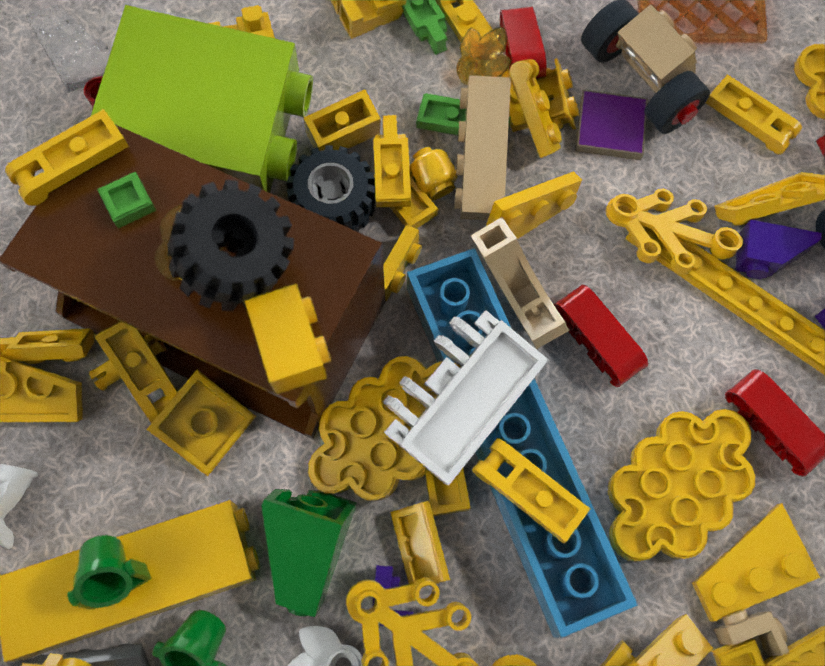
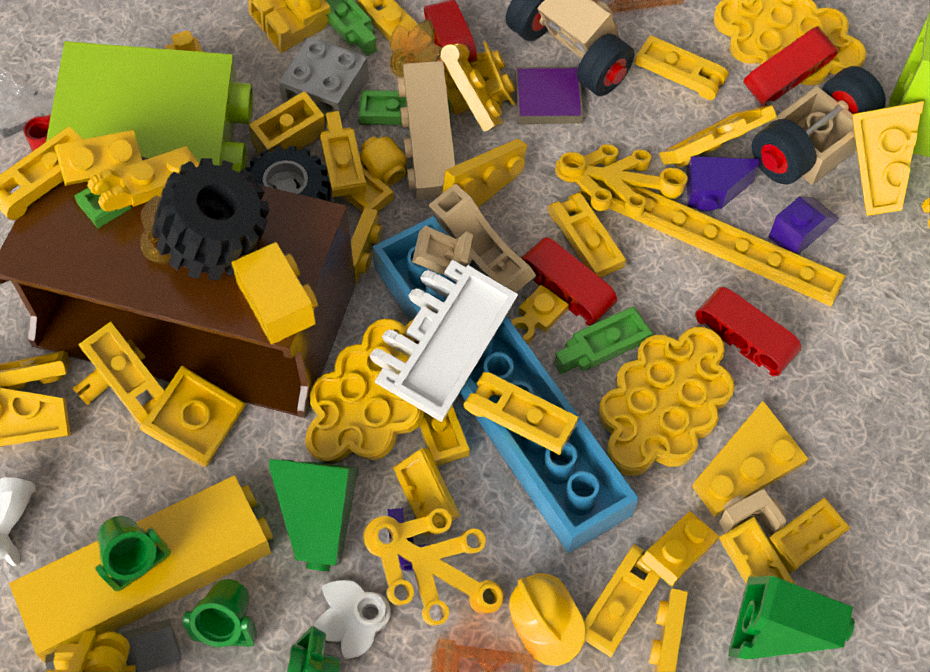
camera: 10 degrees left, 10 degrees down
(128, 150) = (93, 155): none -> yellow plate
(169, 182) = (138, 181): none -> yellow hinge
(390, 74) = (327, 74): none -> light grey brick
(477, 293) = (437, 250): none -> tan bracket
(566, 362) = (539, 310): none -> yellow plate
(627, 287) = (587, 235): none -> yellow plate
(627, 408) = (603, 341): none -> bright green hinge

